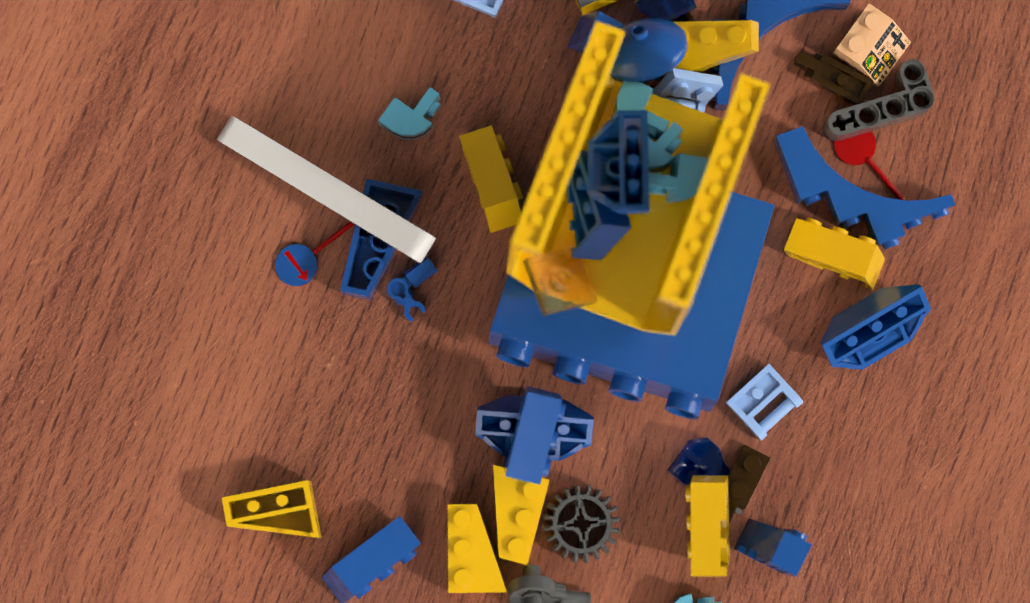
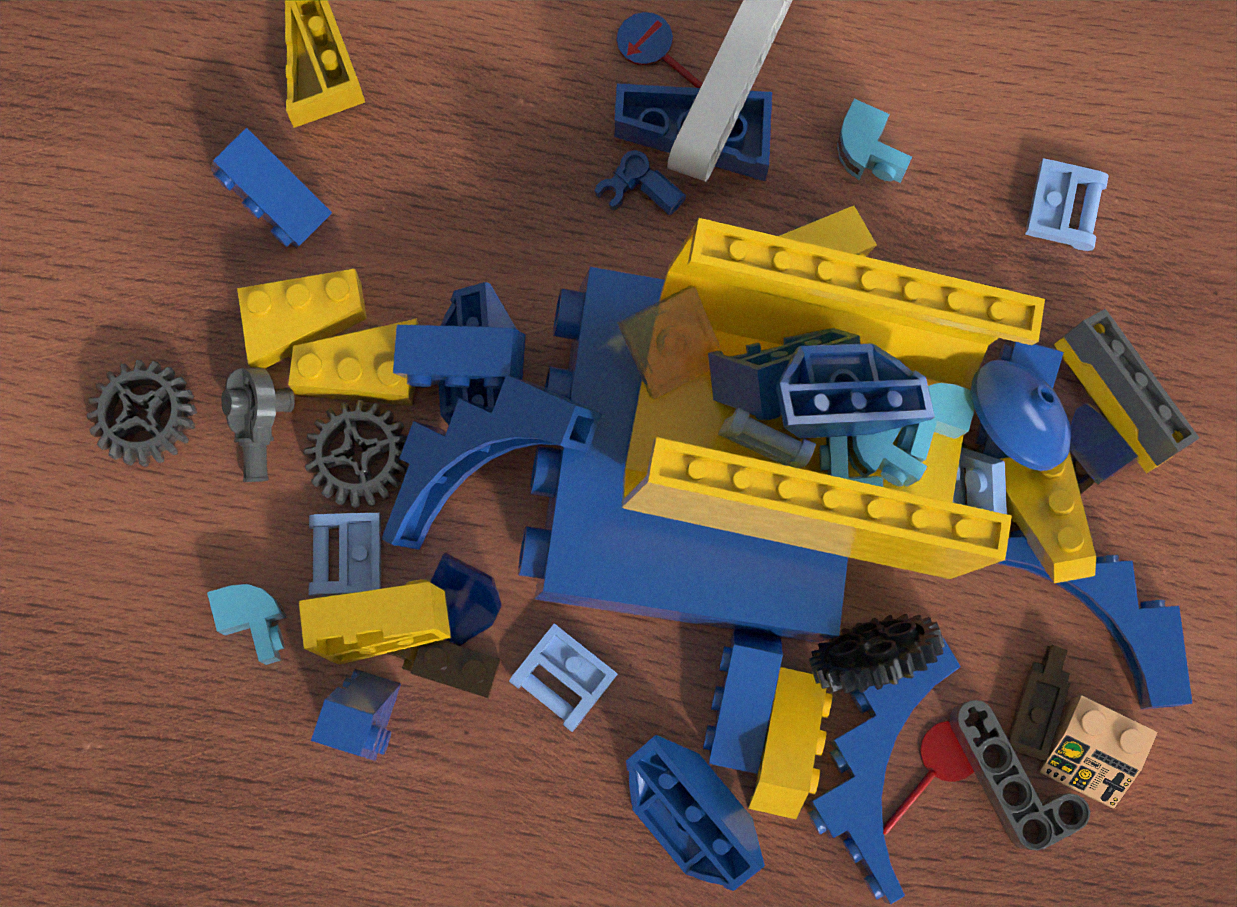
camera: 80 degrees right, 5 degrees down
(589, 430) = (476, 434): none -> blue arch
(631, 240) = (766, 440): none -> light blue plate
(655, 534) = (357, 553): none -> light blue plate
(788, 180) = (877, 653): none -> black gear
(803, 278) = (744, 700): none -> blue wedge

